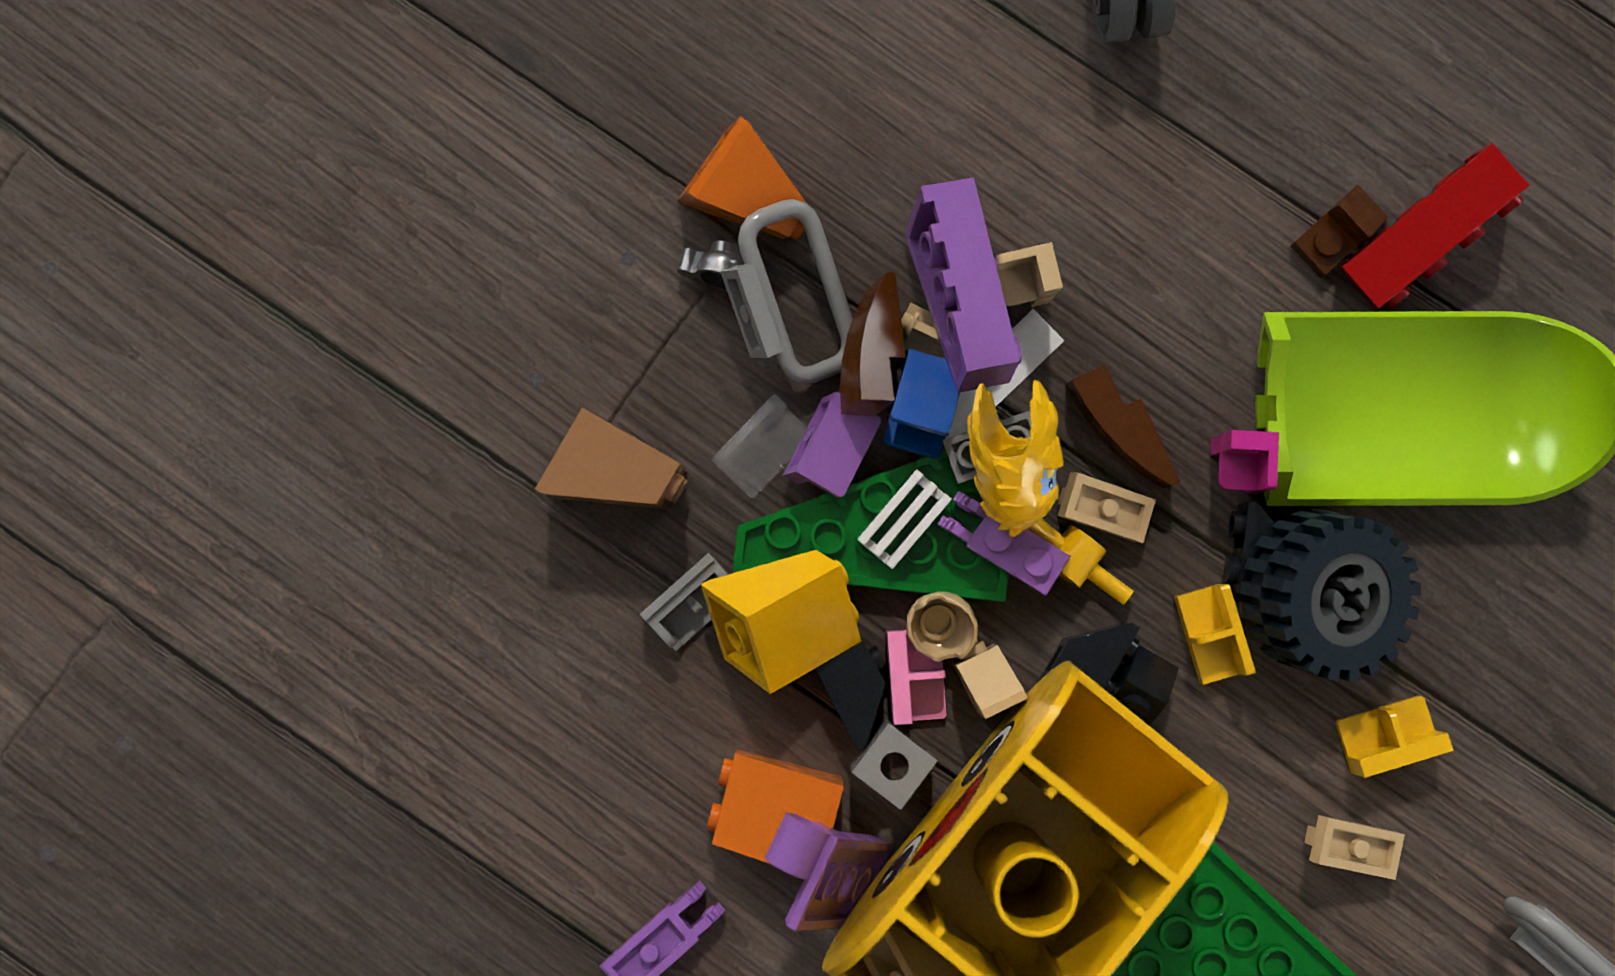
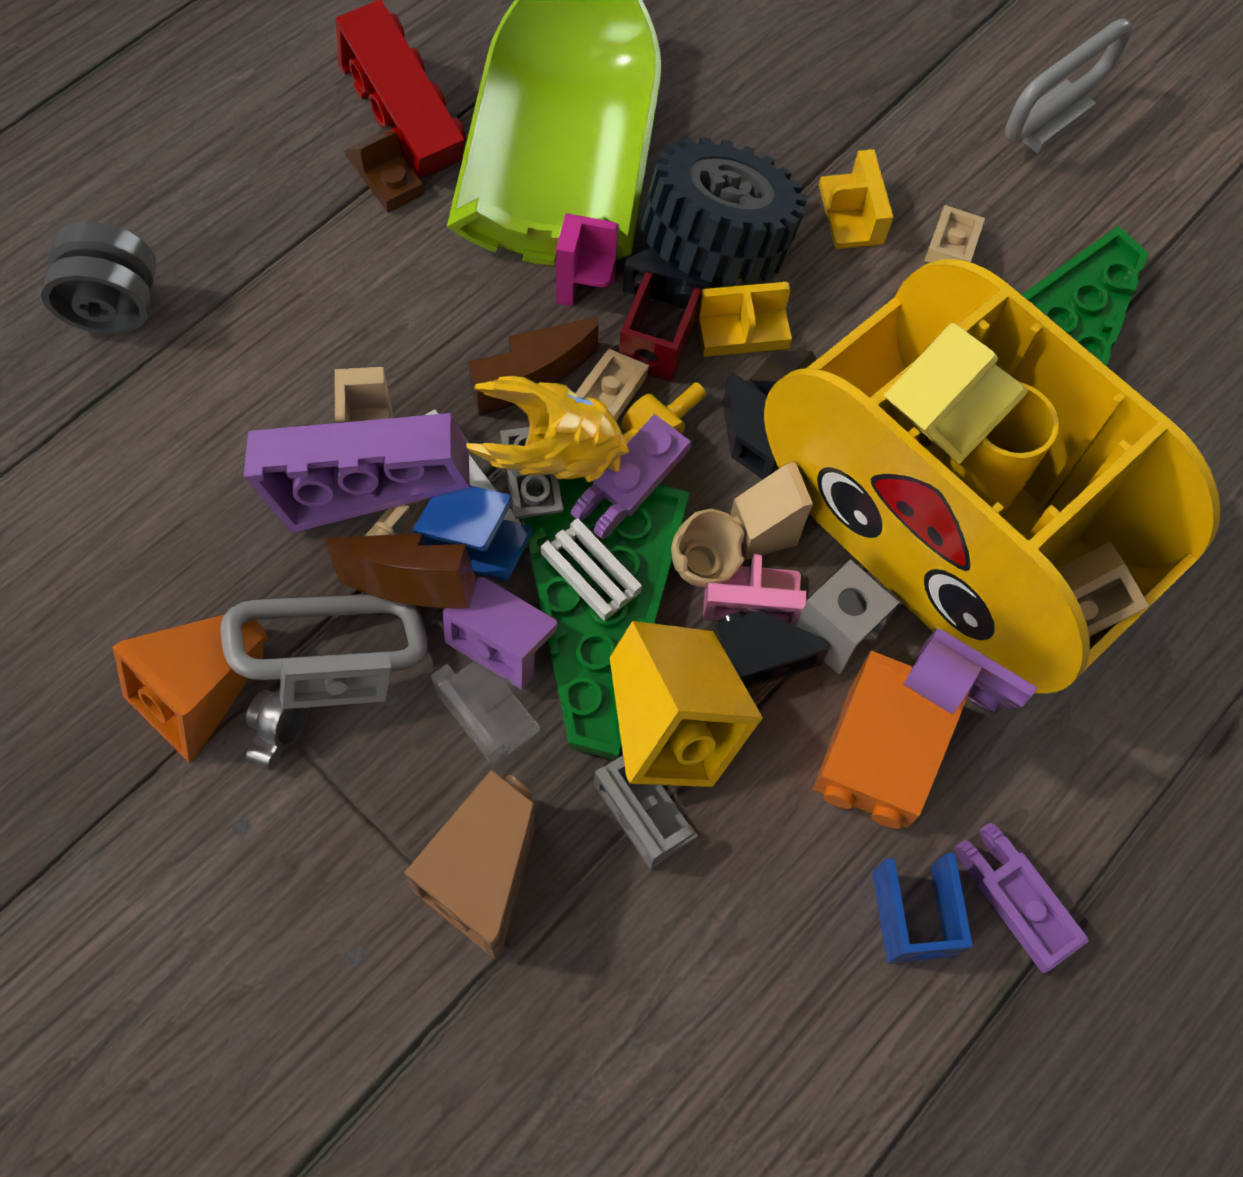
camera: 90 degrees left, 20 degrees down
(609, 884) = (950, 910): none -> blue piece
(1039, 833) = (956, 392): none -> light yellow piece
(1153, 539) = (667, 352): none -> dark red piece

